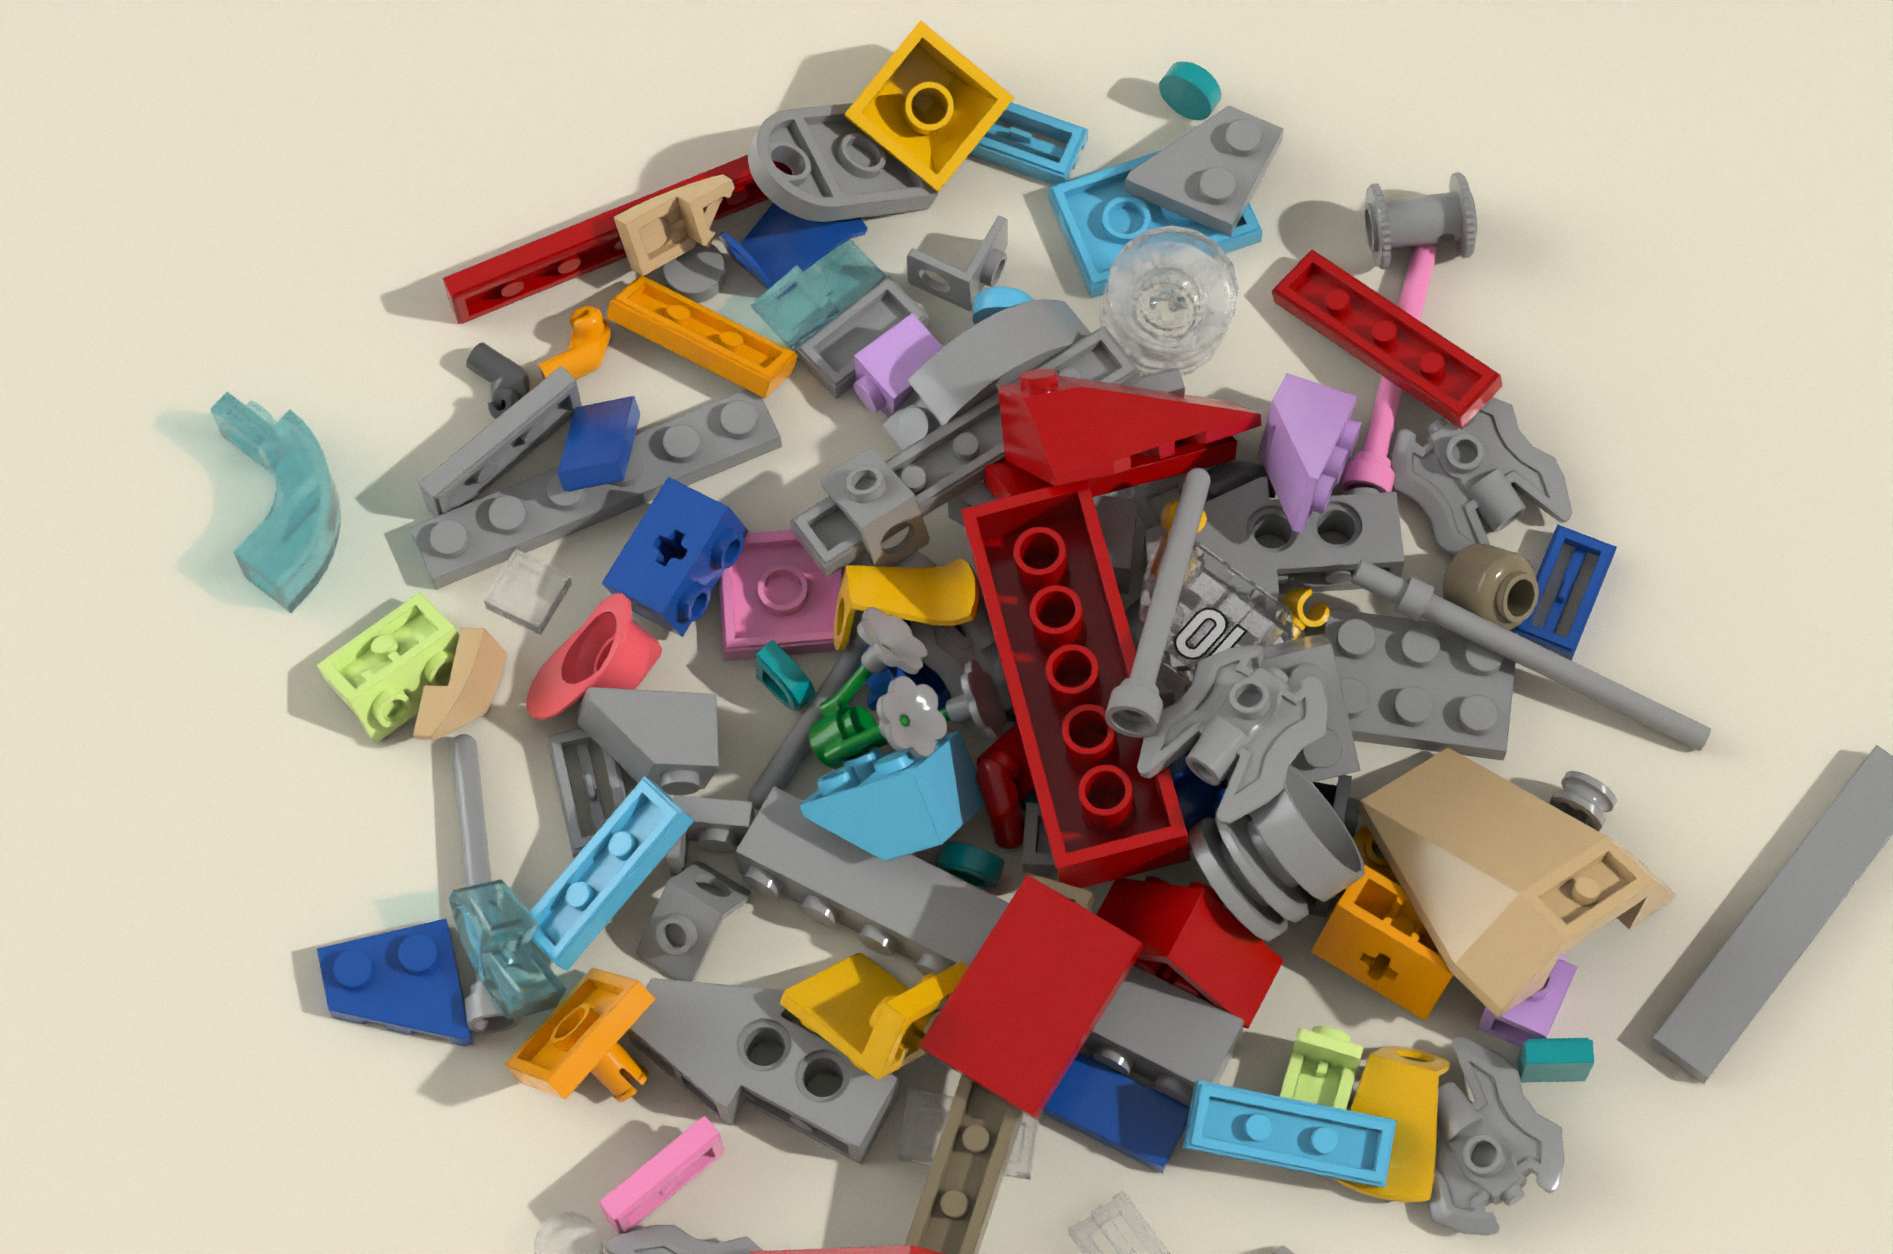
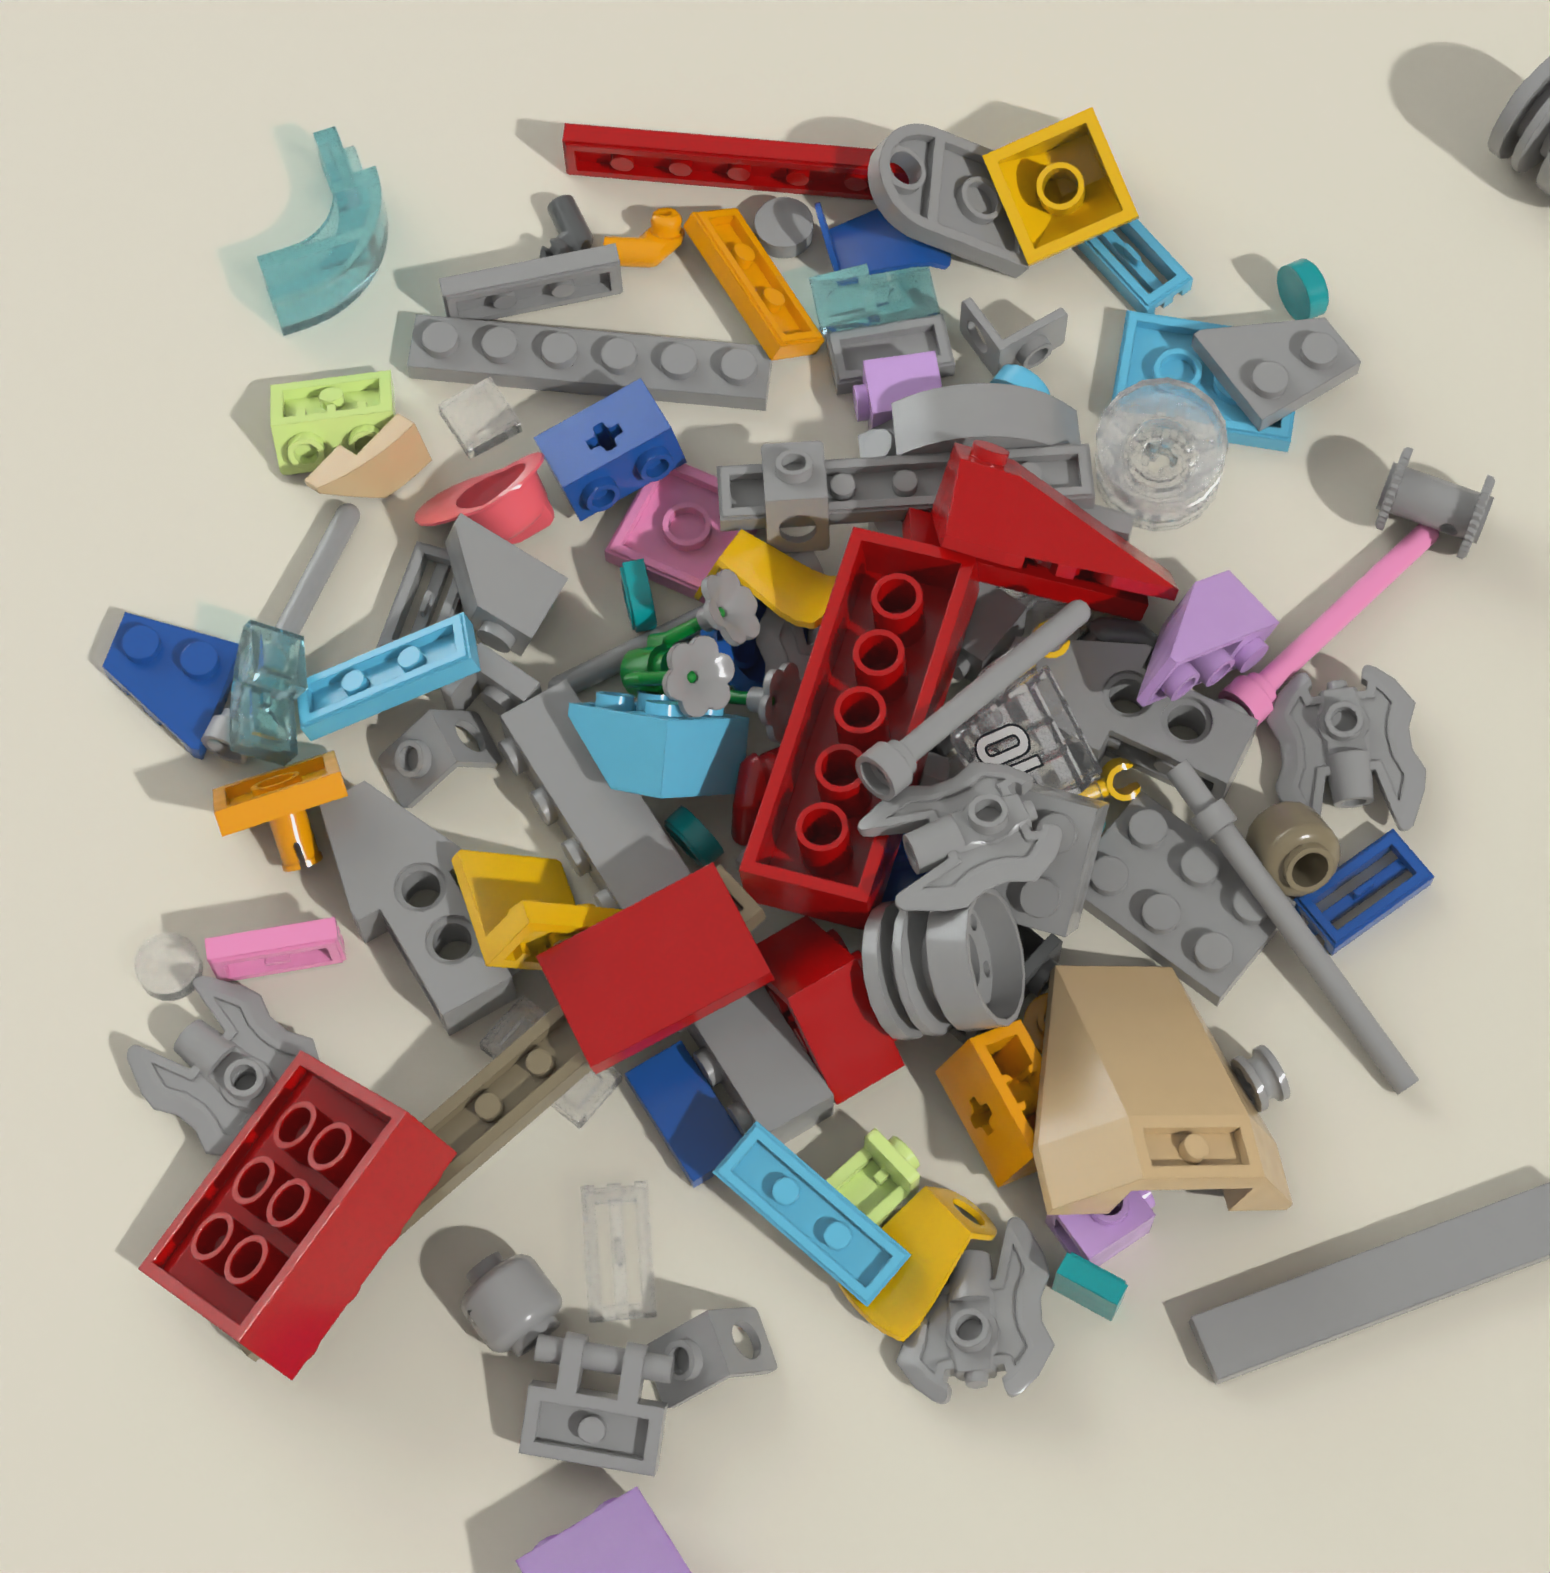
camera: 30 degrees right, 0 degrees up
(599, 444) = (606, 324): blue tile -> none
(671, 223) = (781, 173): tan slope -> none
(1387, 339) = (1340, 589): red tile -> none

